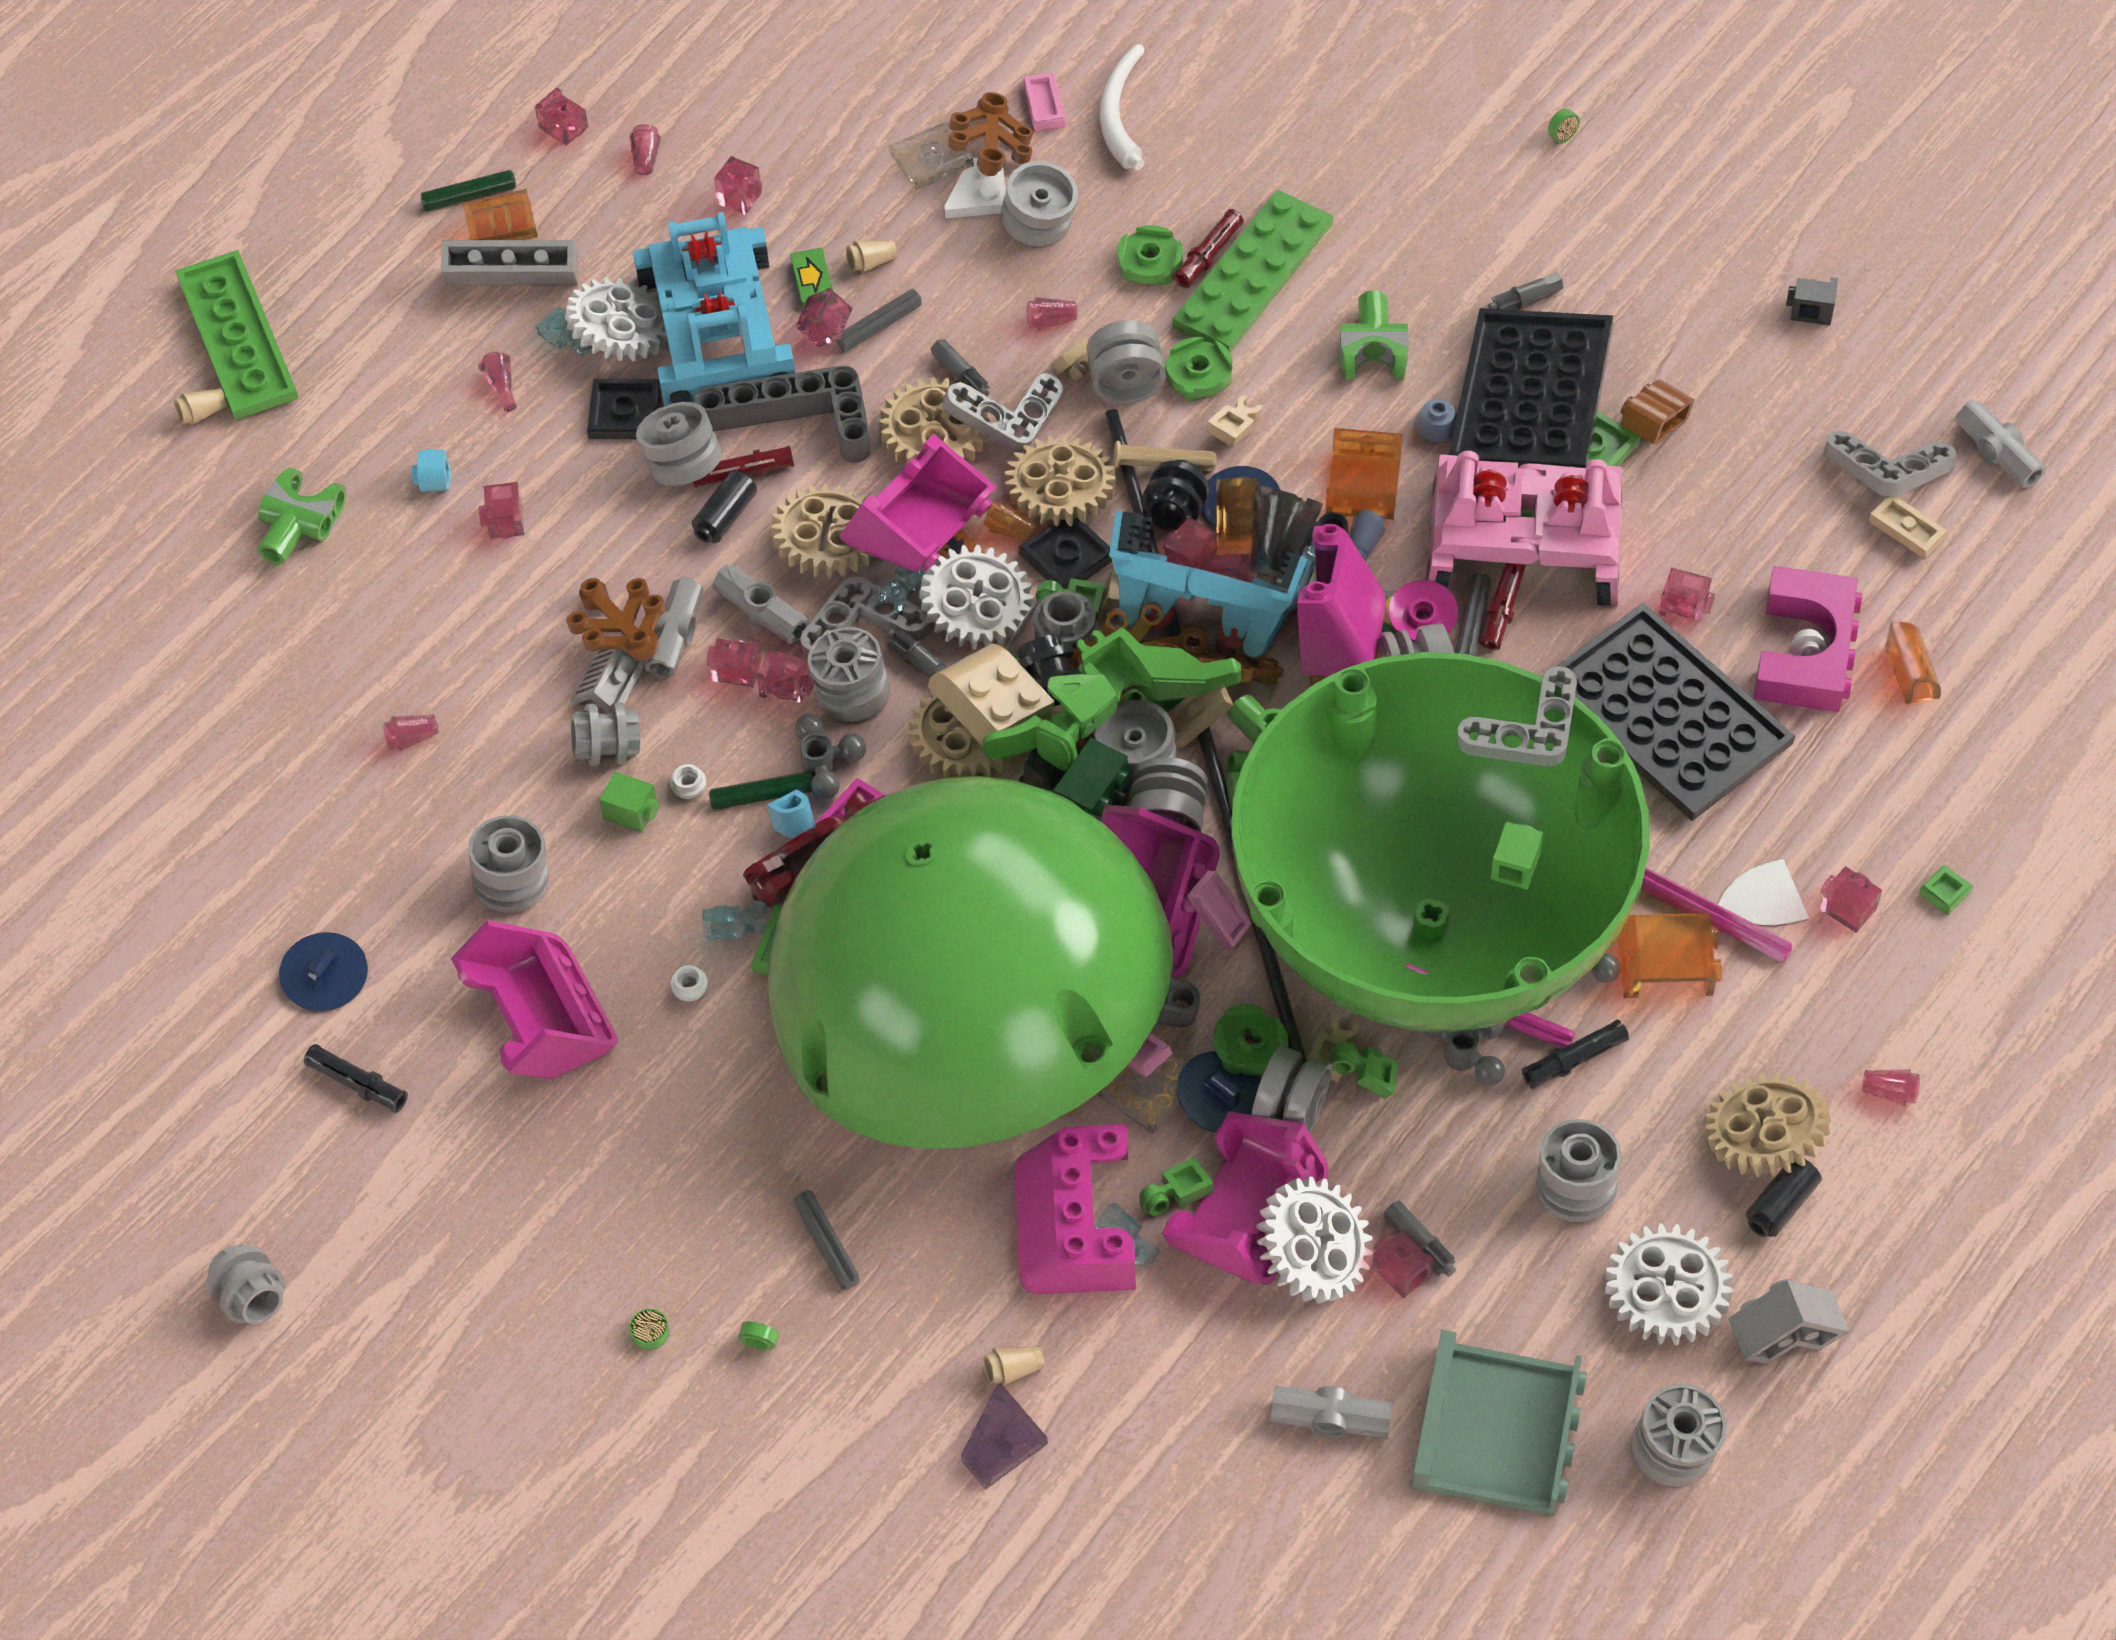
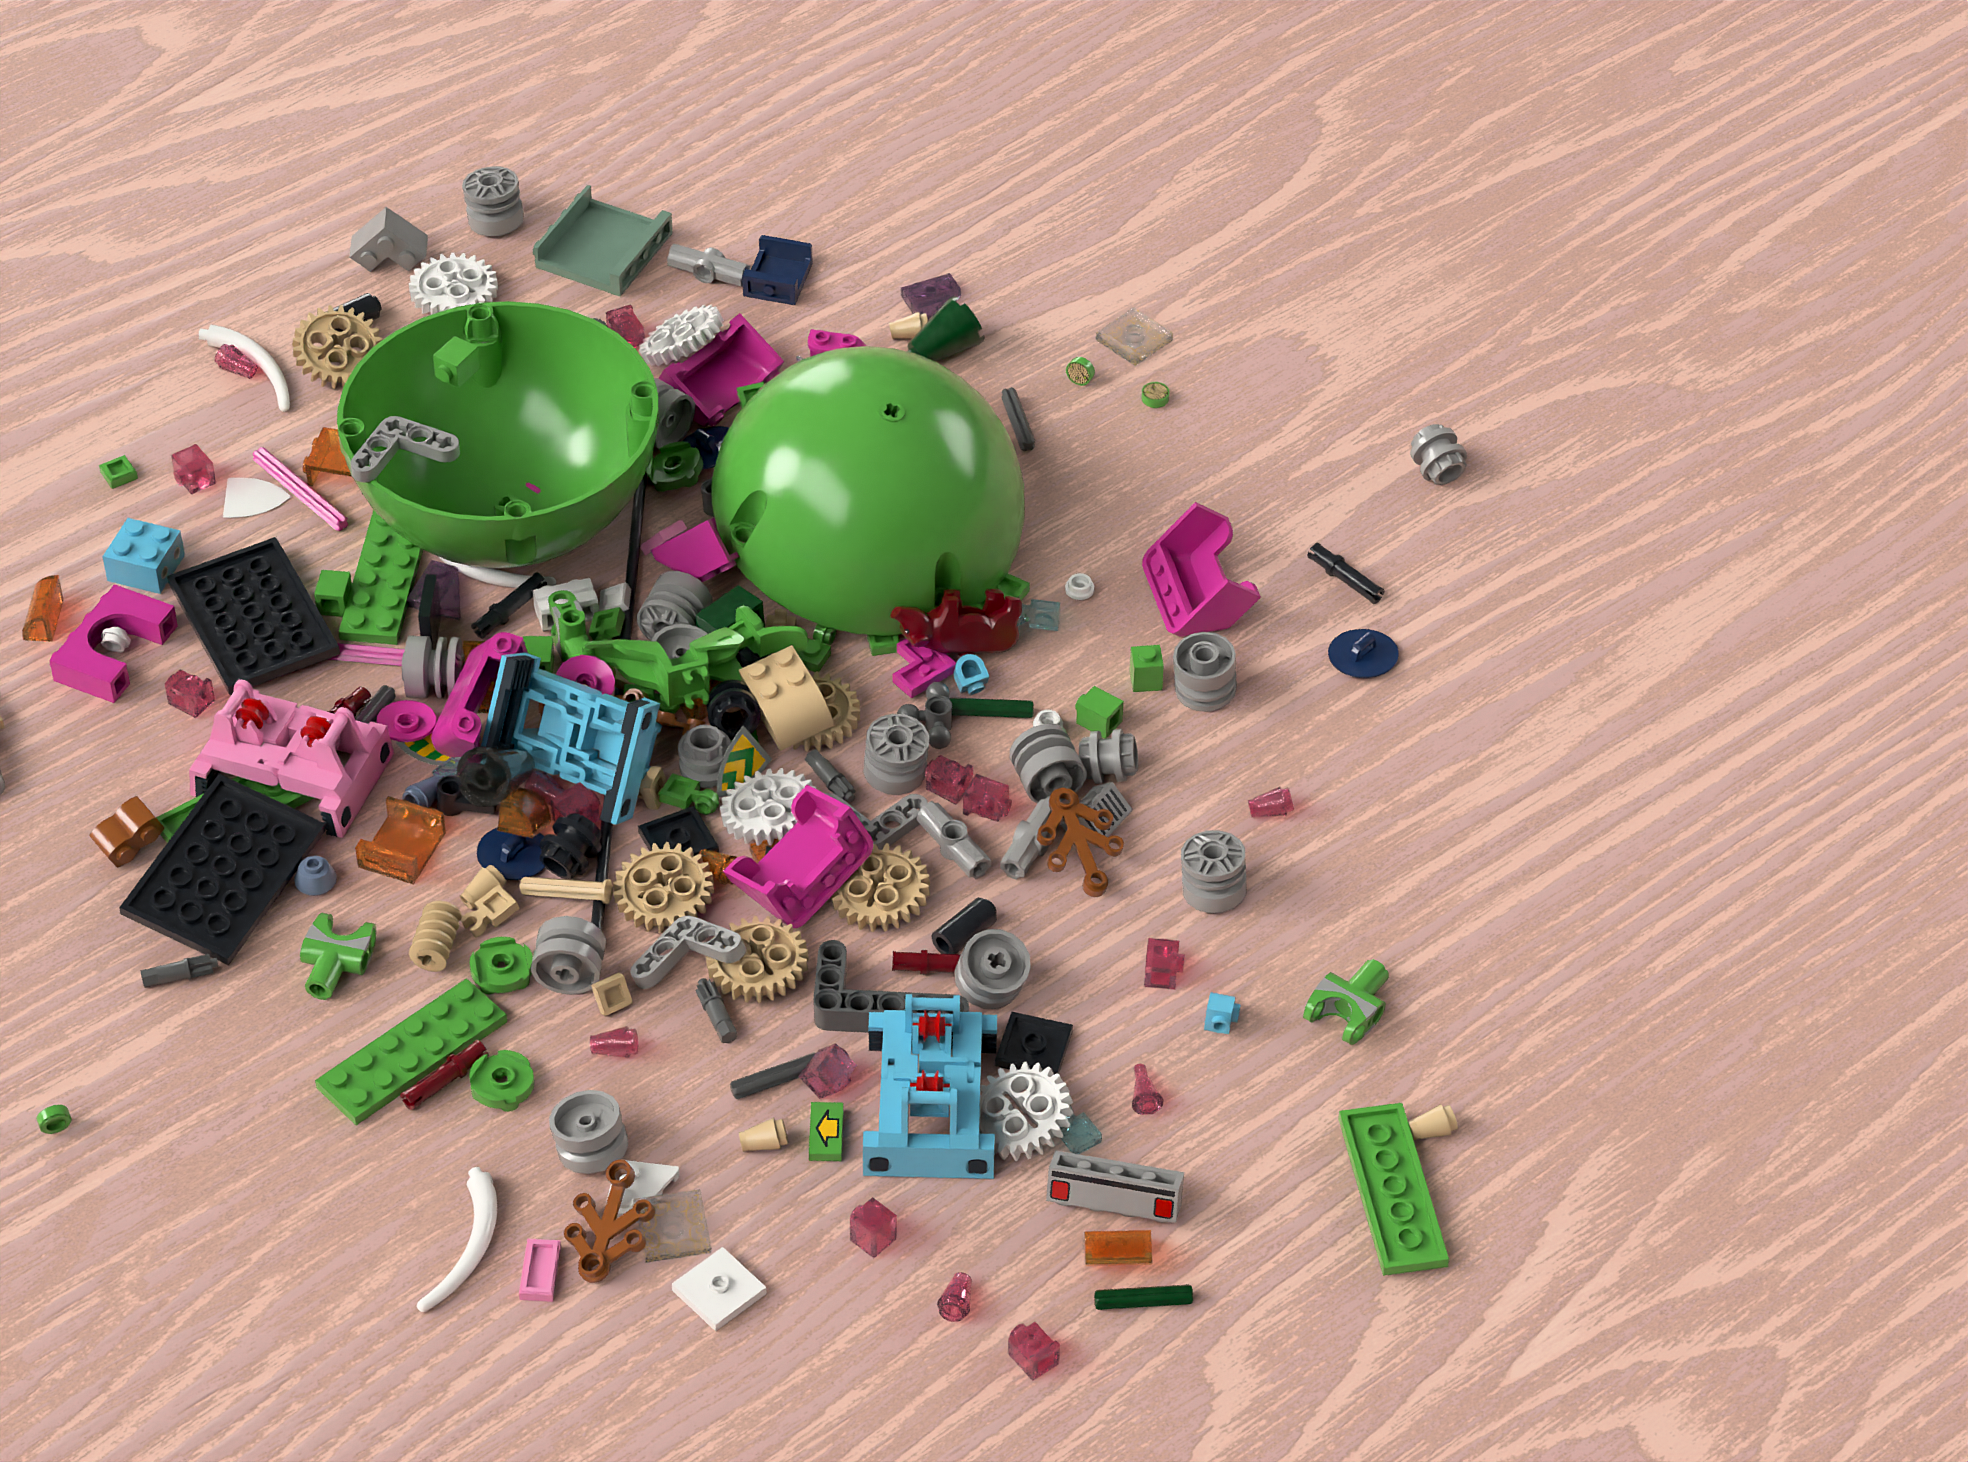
camera: 170 degrees left, 10 degrees down
(460, 608) = (1213, 871): none -> light grey wheel
(583, 869) = (1146, 668): none -> bright green brick
(671, 695) = (1046, 761): none -> light grey wheel
(696, 1423) = (1134, 336): none -> clear plate
(870, 118) = (719, 1289): none -> white plate
(954, 1343) = (947, 332): none -> dark green cone
(1224, 638) = (588, 671): none -> dark pink dish
(1230, 1425) = (778, 270): none -> dark blue panel
(1252, 445) = (481, 884): none -> tan cone
(1277, 371) = (435, 935): none -> tan piece
(1838, 756) = (143, 555): none -> medium azure piece
(1907, 1121) = (218, 335): none -> white animal

